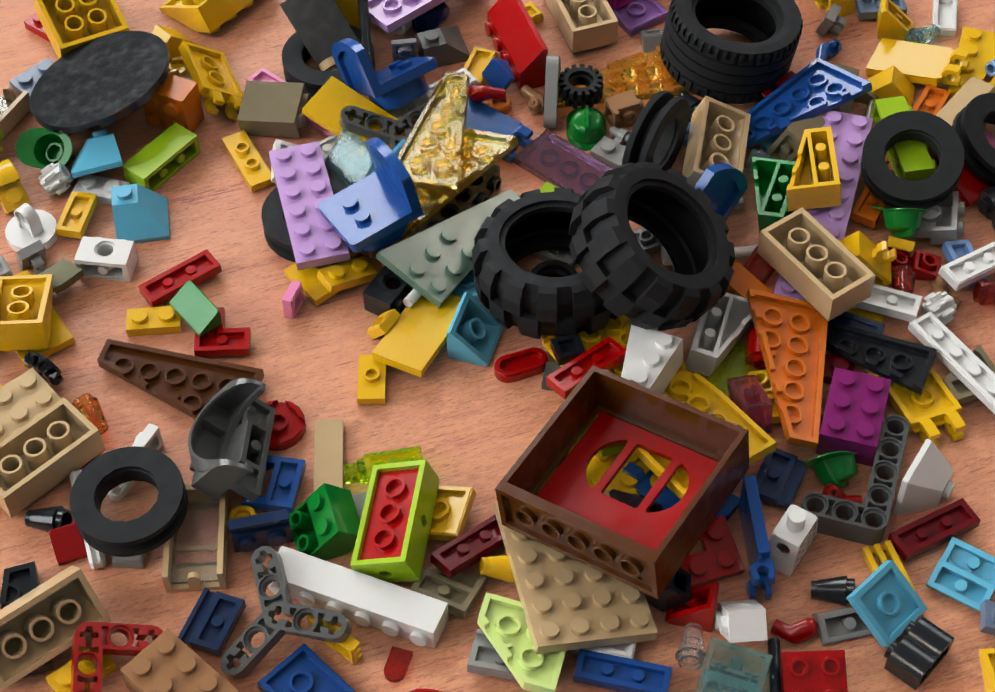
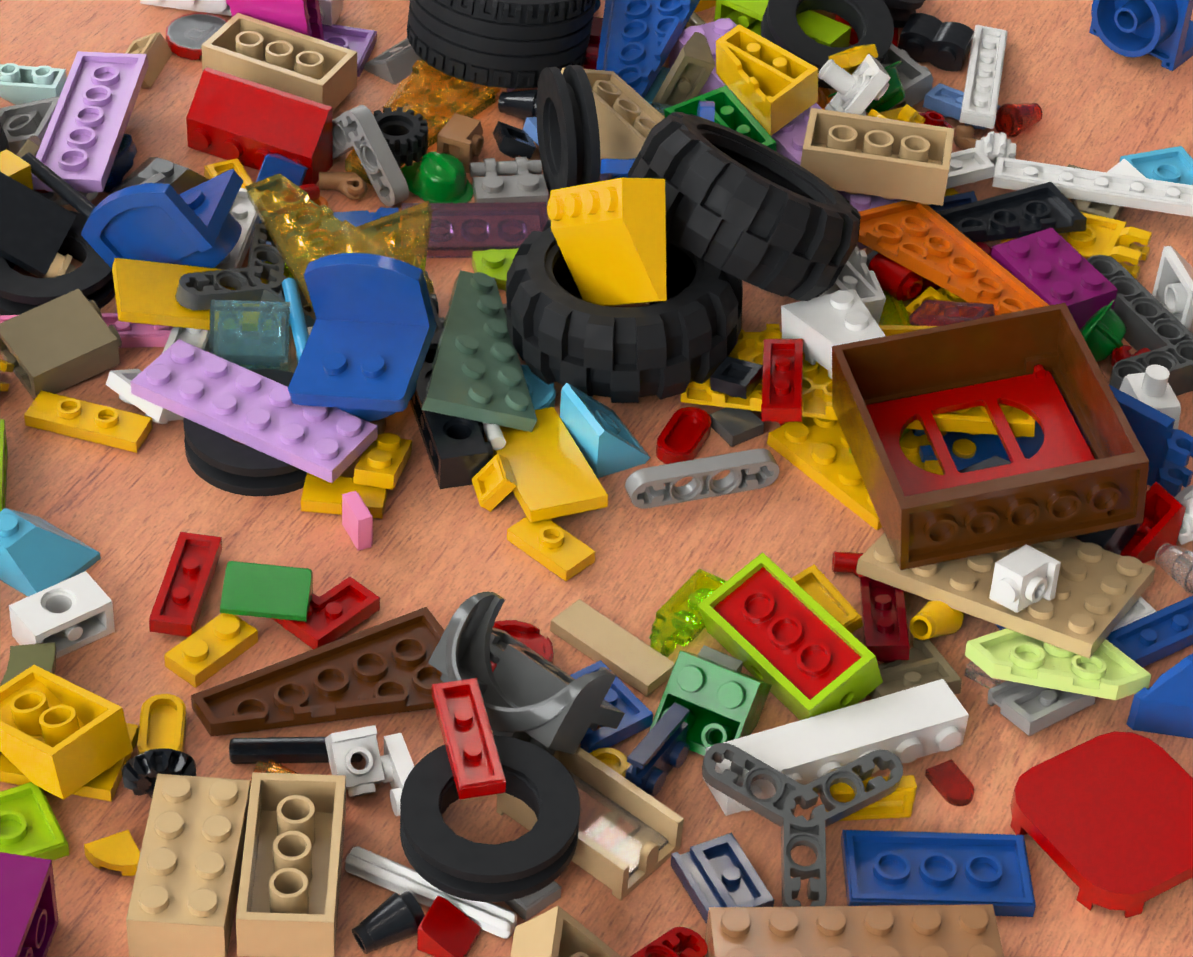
camera: 50 degrees left, 10 degrees down
(82, 348) = (162, 723): none -> yellow tile
(122, 401) = (281, 750): none -> black axle
(128, 424) = (340, 749): none -> white brick
(154, 452) = (468, 738): none -> tile
(492, 396) = (747, 469): none -> light grey beam
(538, 215) = (613, 239): none -> yellow slope
(539, 579) = (1024, 578): none -> white brick
(863, 213) = (855, 90): none -> white plate
(893, 191) = (852, 57): none -> yellow tile

